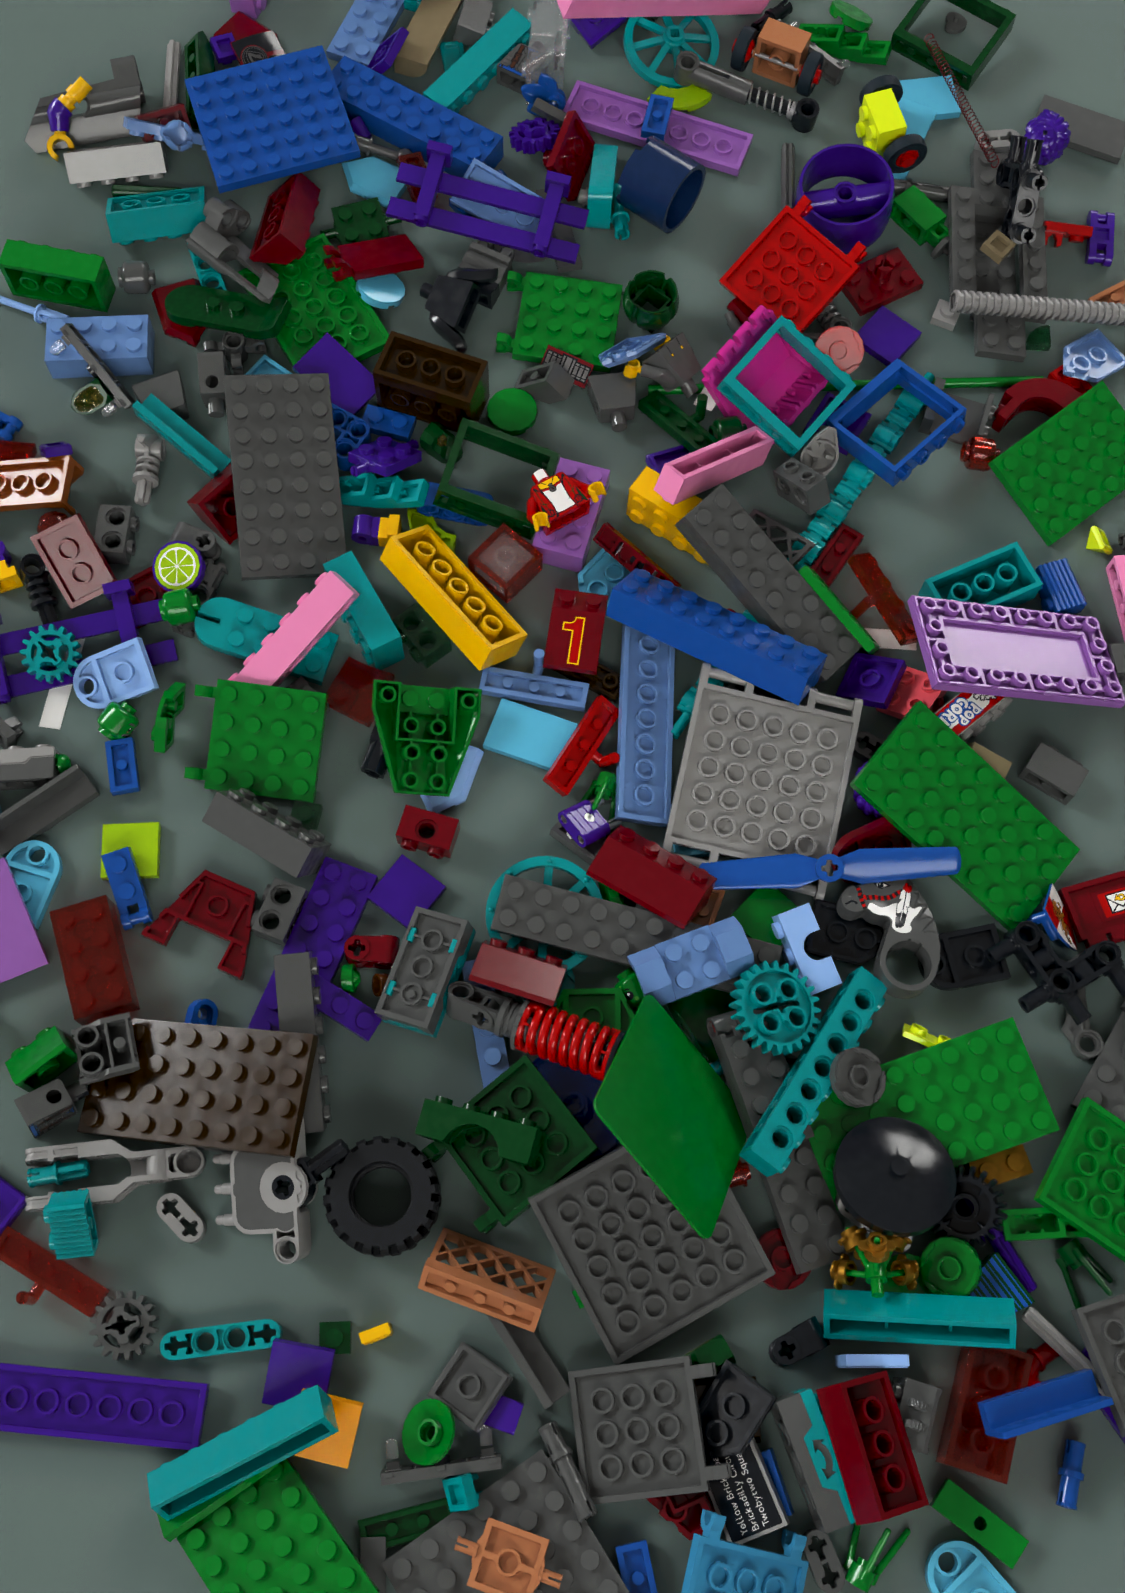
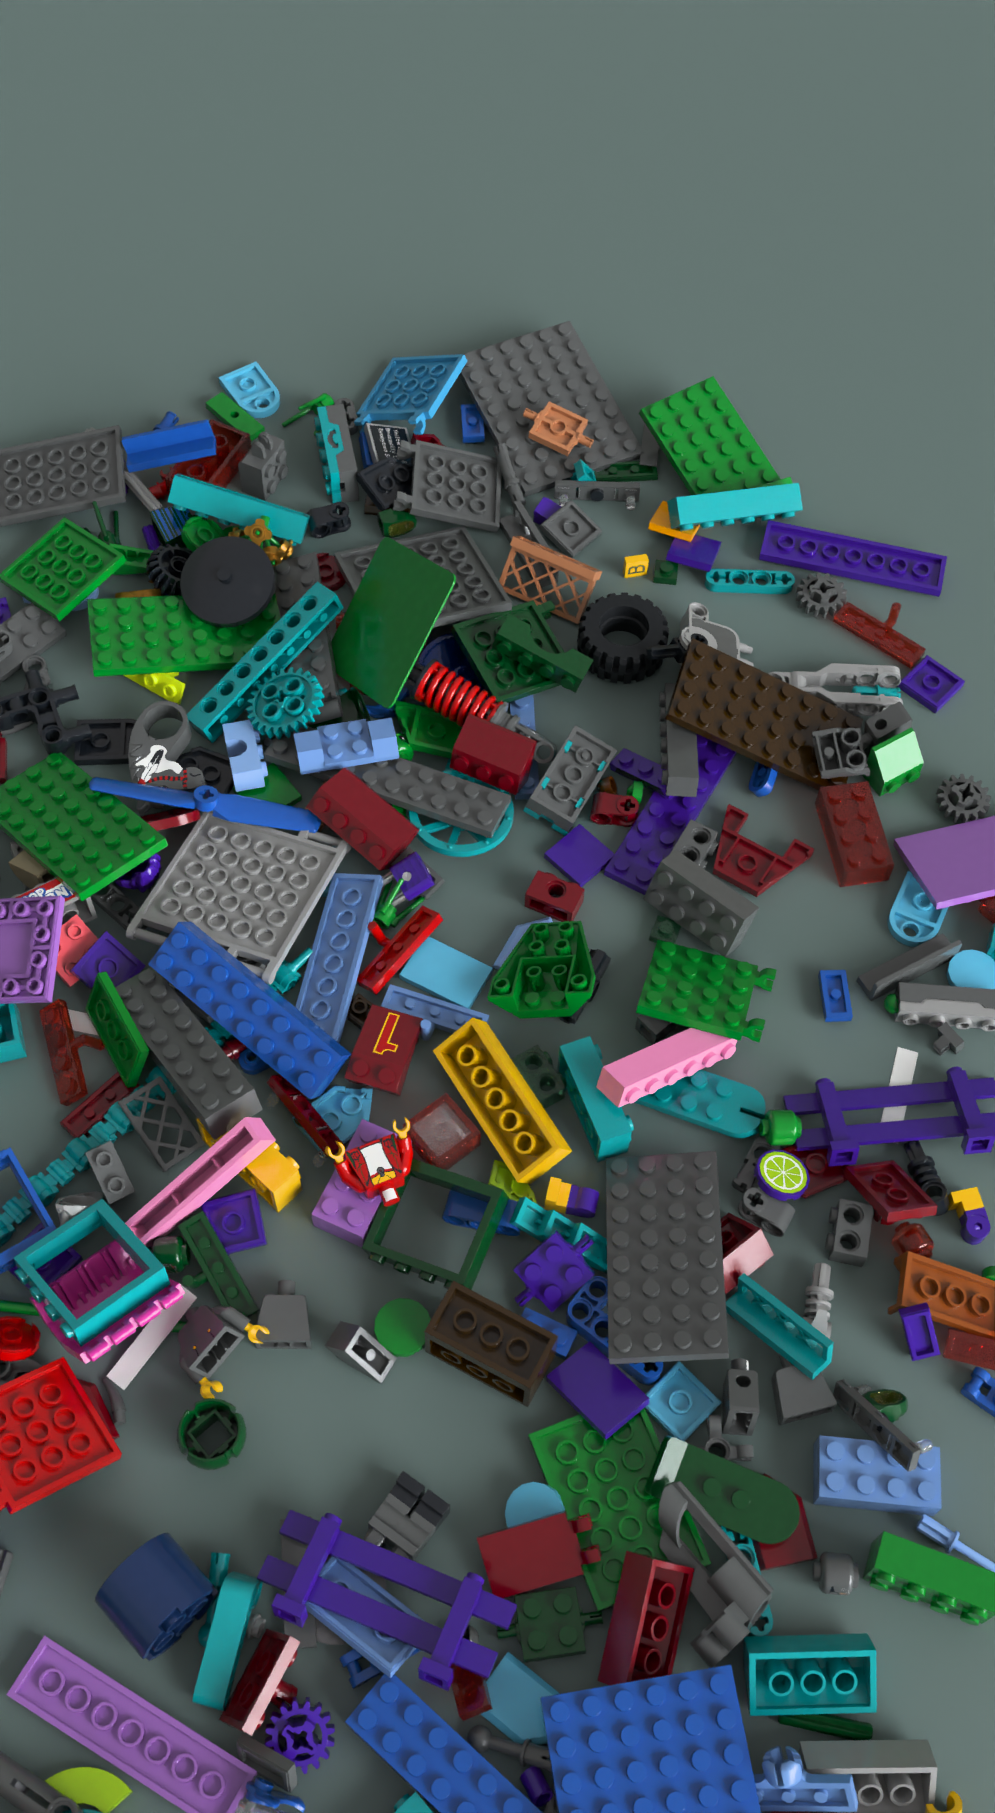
camera: 170 degrees left, 10 degrees down
(42, 659) = (909, 1100): teal gear -> none
(71, 1224) = (862, 650): teal brick -> none
(117, 675) = (843, 1074): light blue tile -> none
(118, 720) = (841, 1033): green head -> none
(127, 887) = (827, 888): blue plate -> none
(144, 843) = (825, 924): lime tile -> none
(169, 708) = (796, 1015): green plate -> none
(187, 1213) = (777, 656): light grey beam -> none
(353, 690) = (610, 1032): clear red plate -> none
(419, 1428) = (603, 507): green dish -> none
(438, 442) = (492, 1289): dark green rock -> none
(454, 301) = (449, 1466): black torso -> none
(562, 313) = (318, 1442): green plate -> none
(574, 366) = (330, 1368): tile -> none
(630, 349) = (255, 1365): medium blue tile -> none
(657, 116) = (129, 1731): blue plate -> none
(857, 1077) = (234, 647): dark grey tile -> none
(872, 1361) = (281, 492): light blue tile -> none
(872, 1448) = (299, 433): dark red slope -> none
(1055, 919) = (21, 749): shield -> none

